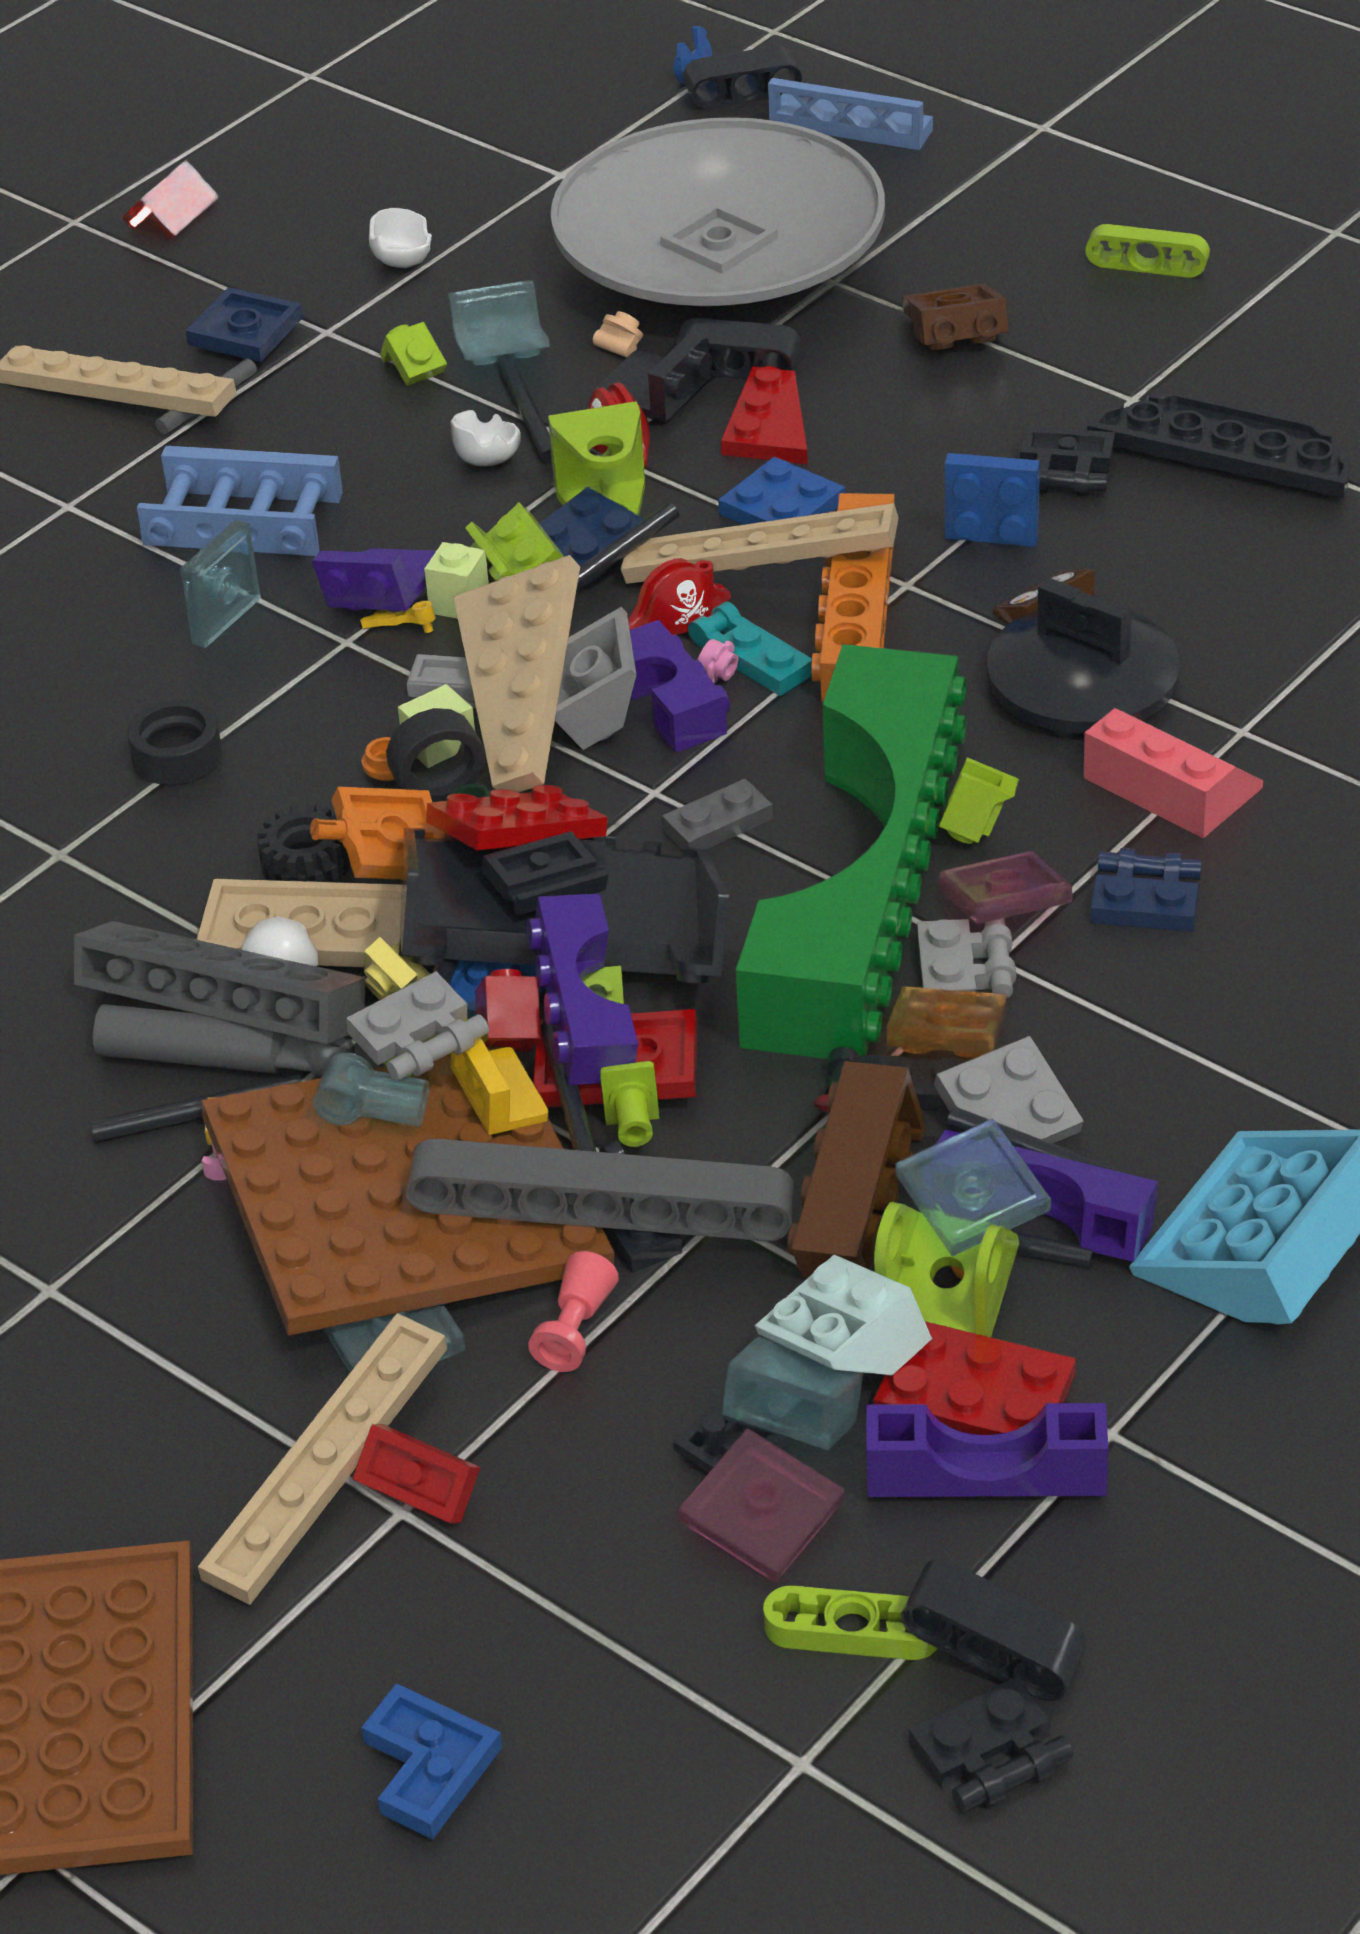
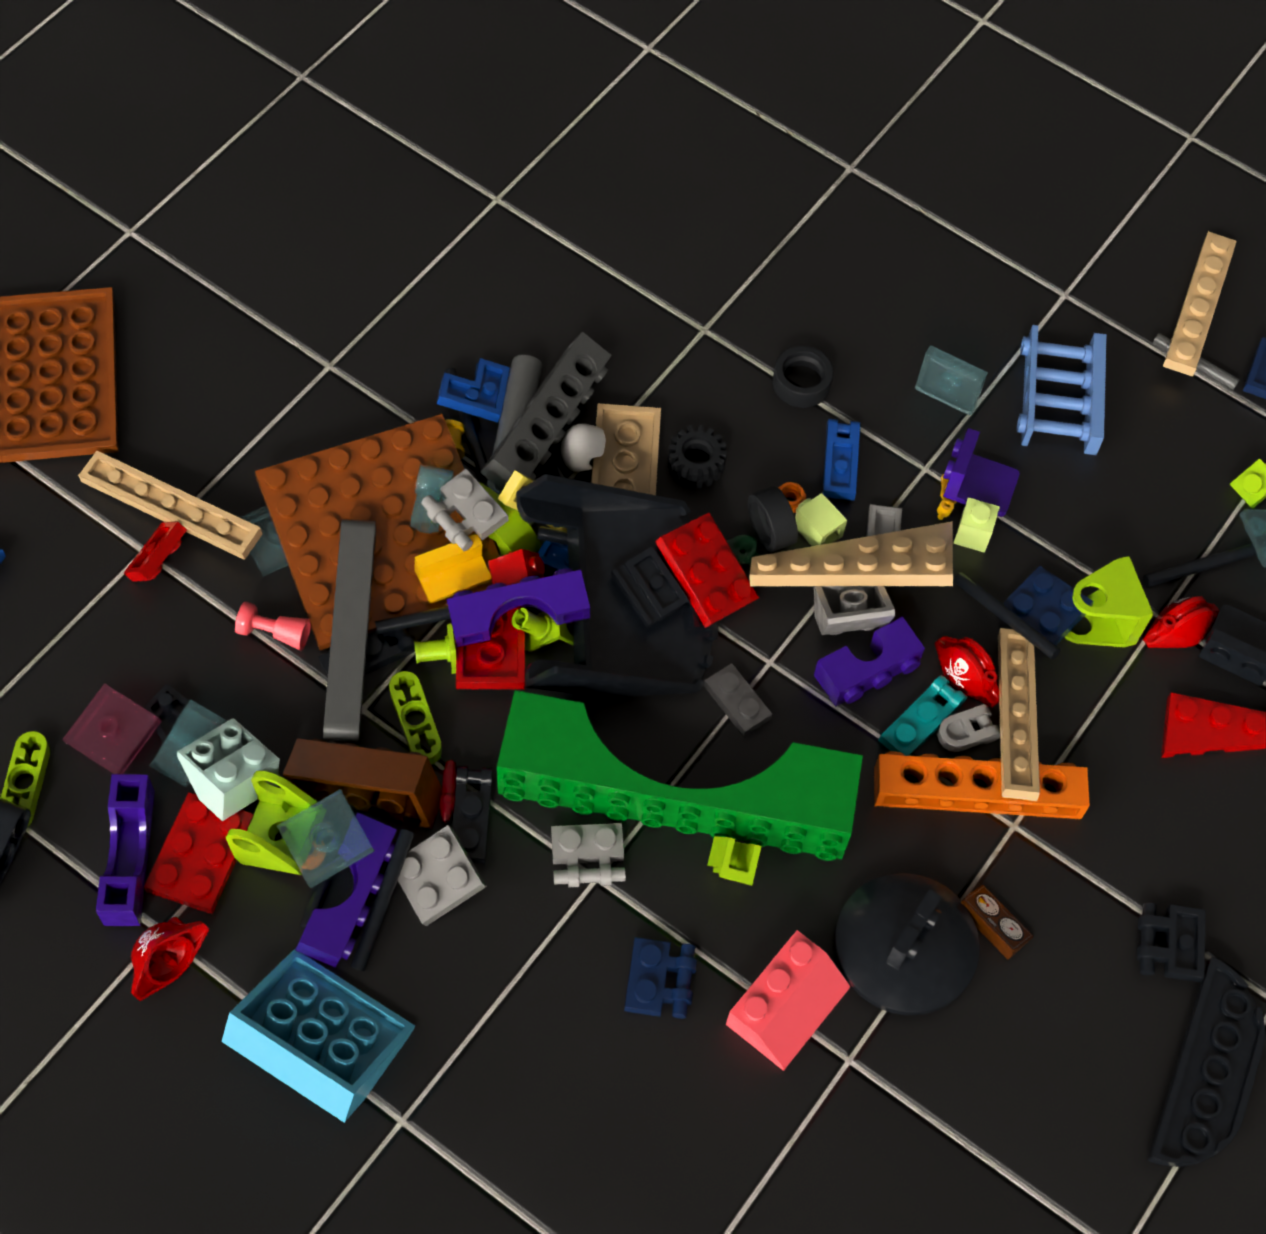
camera: 80 degrees right, 20 degrees up
(148, 1082) = (479, 397): none -> blue plate
(325, 707) = (841, 460): none -> blue plate
(373, 827) = (701, 488): orange plate -> none
(484, 442) = (1151, 532): white hair -> none
(514, 543) = (1016, 558): lime bracket -> none
(719, 660) = (902, 694): bright pink plate -> none
(771, 607) = (958, 733): none -> light grey plate
(775, 1125) = (420, 704): none -> lime beam
(778, 493) = (1105, 738): blue plate -> none
(946, 1021) = (513, 837): clear orange plate -> none
(992, 499) = (1087, 873): blue plate -> none
(1005, 887) = (651, 879): clear pink plate -> none
(1153, 1405) = (164, 954): none -> red hat

